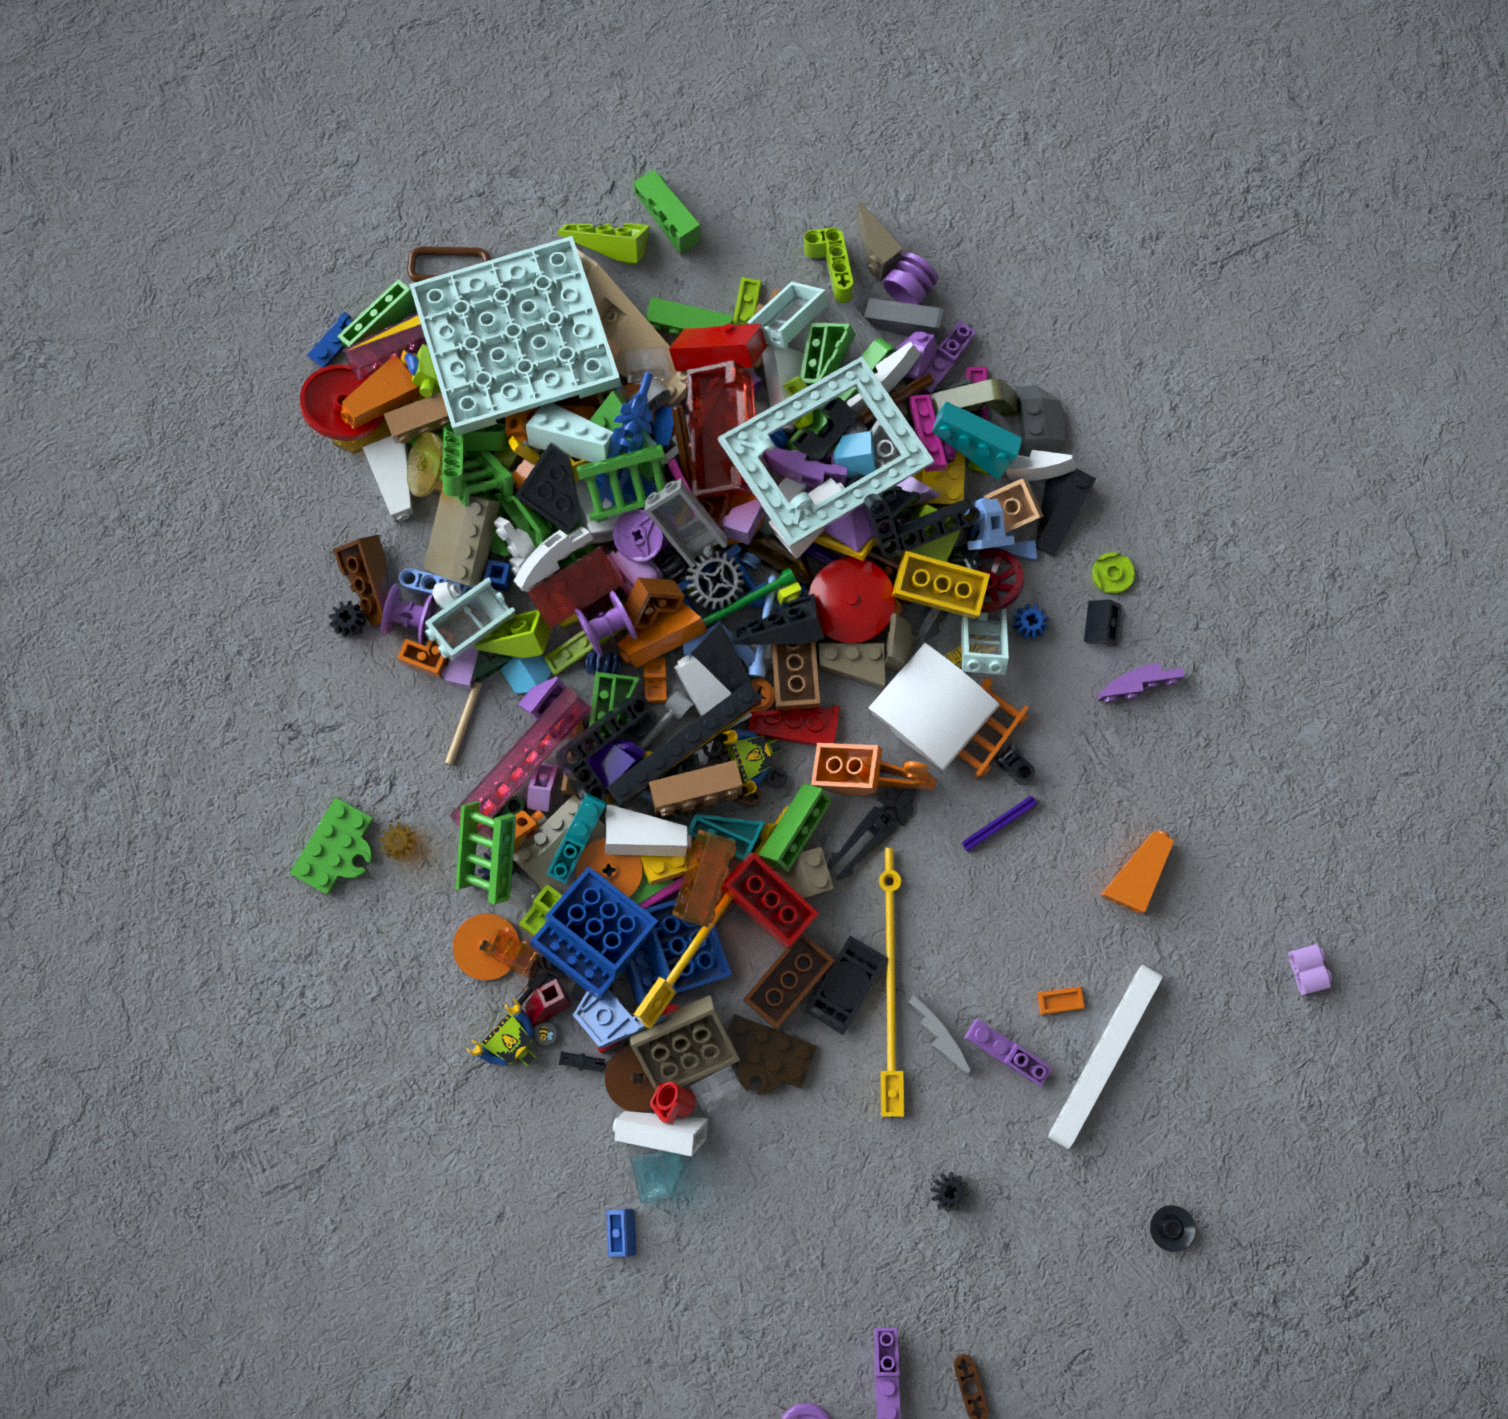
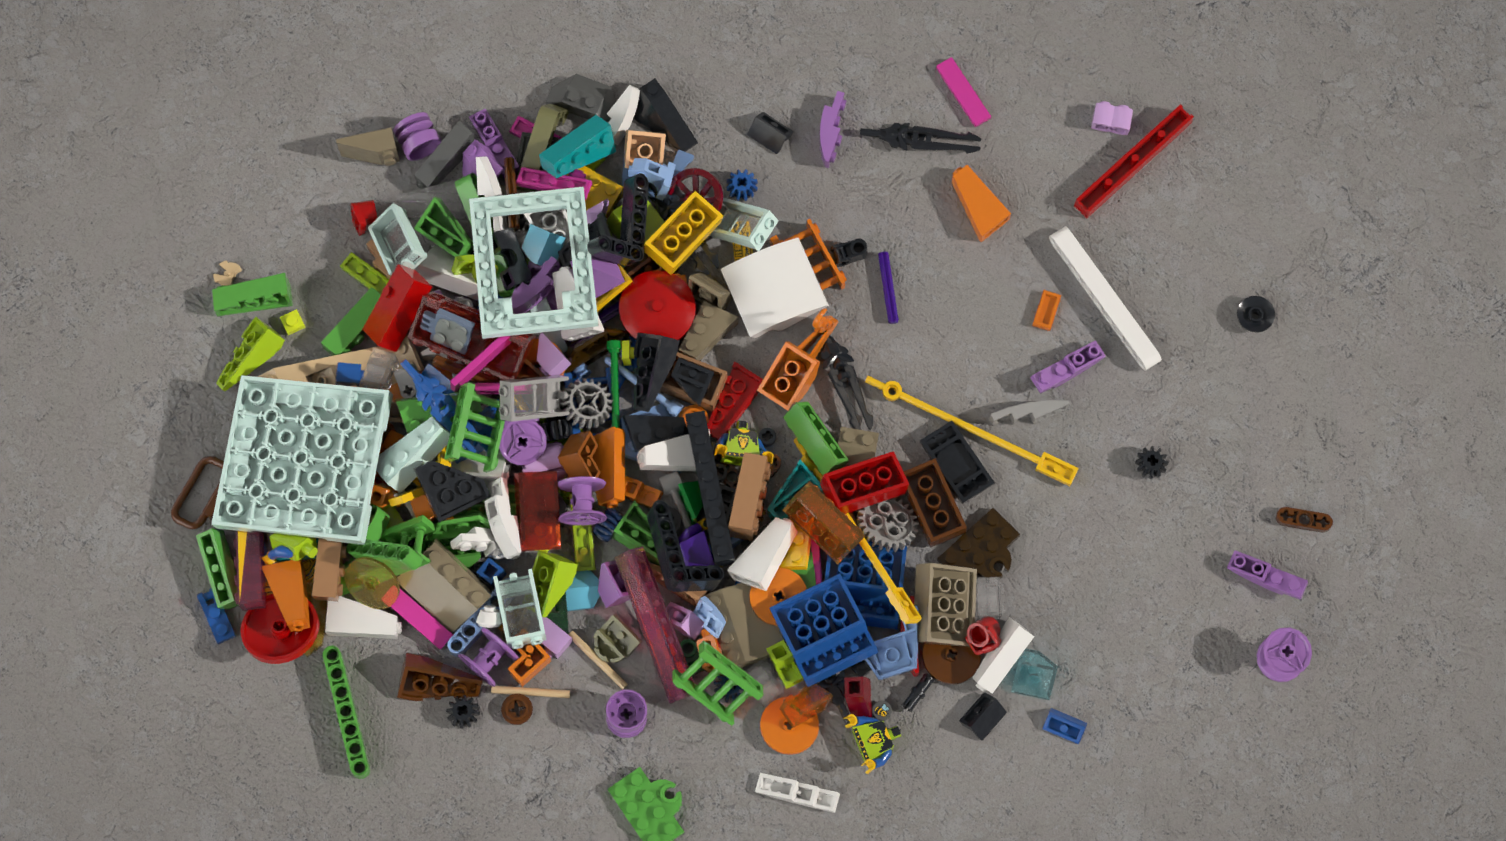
camera: 60 degrees left, 5 degrees down
(290, 518) = (350, 720): none -> bright green beam
(365, 669) = (509, 704): none -> reddish brown gear
(391, 847) = (666, 748): clear yellow gear -> none
(400, 675) = (531, 691): none -> tan bar
(419, 988) = (797, 793): none -> white slope
(420, 530) = (421, 620): none -> dark pink tile
(420, 765) = (626, 702): none -> medium lavender wheel
(489, 730) = (615, 640): none -> olive slope
(556, 808) = (711, 616): none -> light blue slope
(575, 838) = (741, 607): teal slope -> none
(589, 1141) = (983, 715): none -> black panel
(628, 336) = (348, 374): none -> blue brick
(662, 262) = (292, 322): none -> neon yellow plate
(665, 732) = (692, 500): none -> green slope
(685, 180) = (229, 275): none -> tan piece
(693, 450) = (479, 362): none -> dark pink tile
(714, 405) = (448, 329): none -> piece
(725, 942) = (888, 524): none -> light grey gear
(792, 672) = (692, 379): none -> black wing
(803, 271) = (363, 214): none -> red piece
(831, 244) = (352, 182): lime beam -> none
(1113, 573) = (734, 105): lime tile -> none
(1171, 756) = (900, 136): none -> black sword
(1254, 799) = (963, 92): none -> dark pink tile
(1274, 1015) = (1133, 161): none -> red tile

